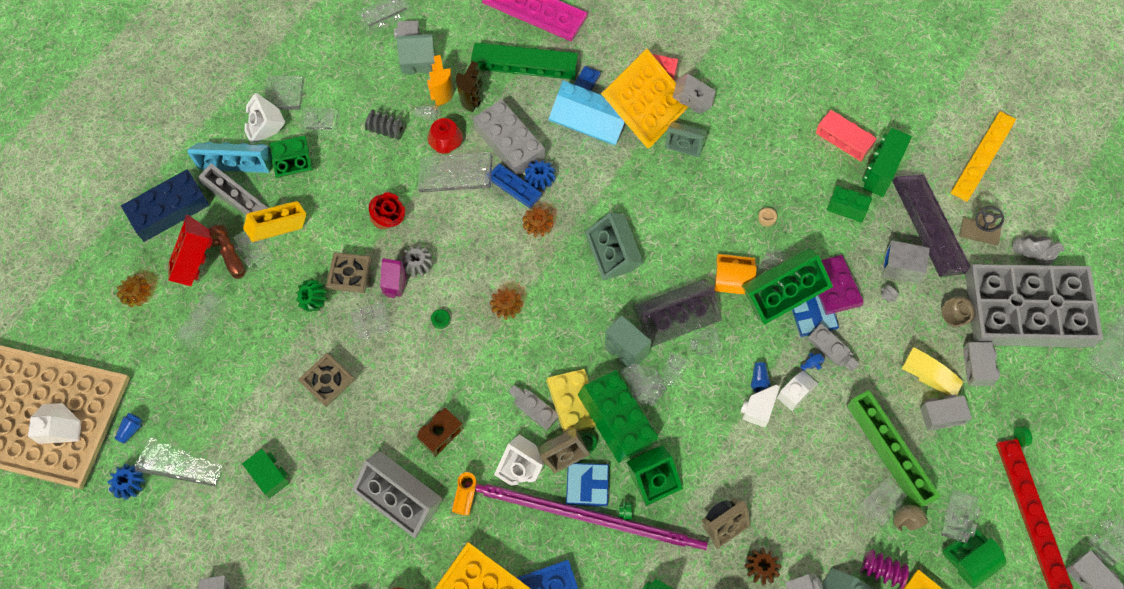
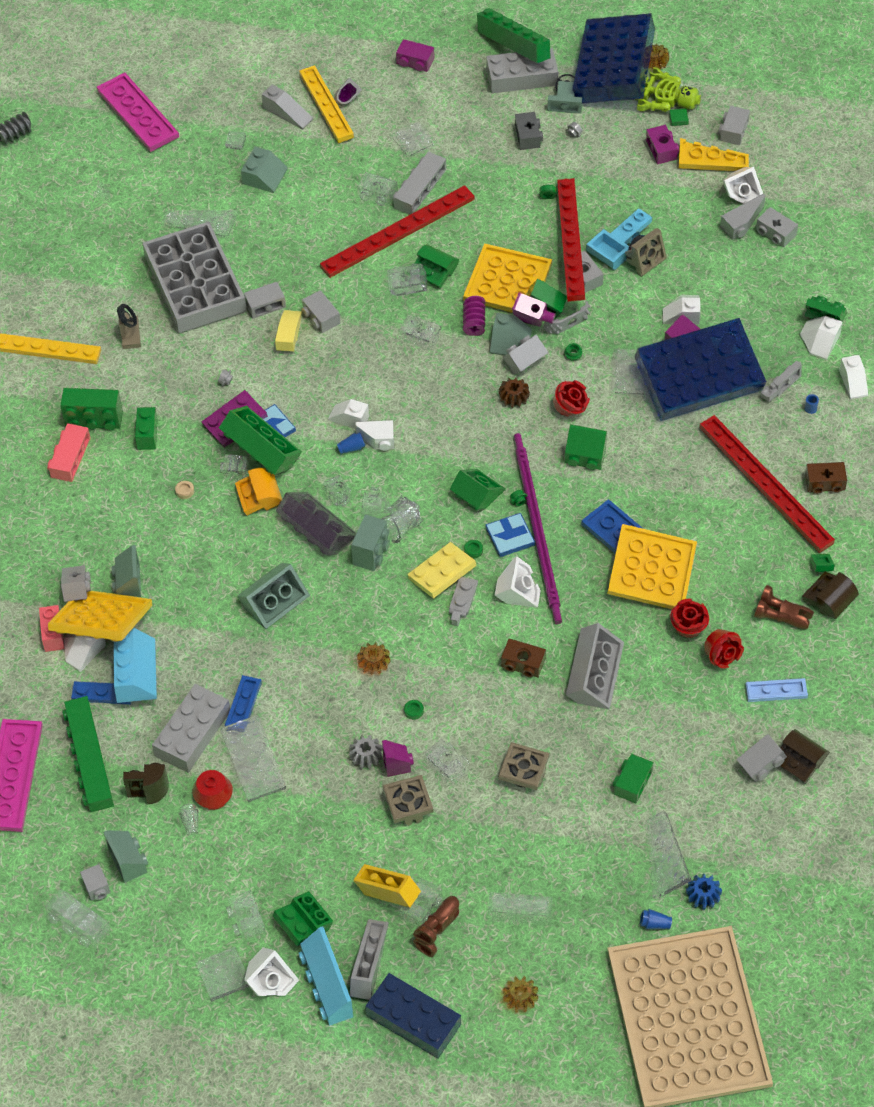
camera: 115 degrees left, 10 degrees down
(54, 425) = (688, 977): white slope -> none
(189, 252) = (457, 950): red slope -> none
(311, 295) = (453, 821): green gear -> none
(383, 125) = (223, 851): dark grey piece -> none
(386, 211) = (327, 796): red cone -> none
(440, 83) = (153, 811): light orange brick -> none
(464, 496) = (569, 616): light orange piece -> none
(532, 226) = (275, 666): clear orange gear -> none
(540, 174) = (227, 680): blue gear -> none
(563, 450) = (491, 552): dark tan slope -> none
(617, 416) = (441, 526): green brick -> none
(726, 521) = (491, 422): dark tan piece -> none
(813, 361) = (317, 411): blue piece -> none
(832, 347) = (297, 402): light grey hinge -> none
(892, 450) = (372, 335): bright green brick -> none
(905, 262) = (190, 371): flat silver piece -> none
(911, 517) = (423, 310): dark tan hair -> none
(931, 225) = (145, 361): clear purple plate -> none
(958, 307) = (221, 321): dark tan hair -> none
(1023, 435) = (315, 259): green tile -> none
(1038, 248) = (132, 286): light grey hair -> none

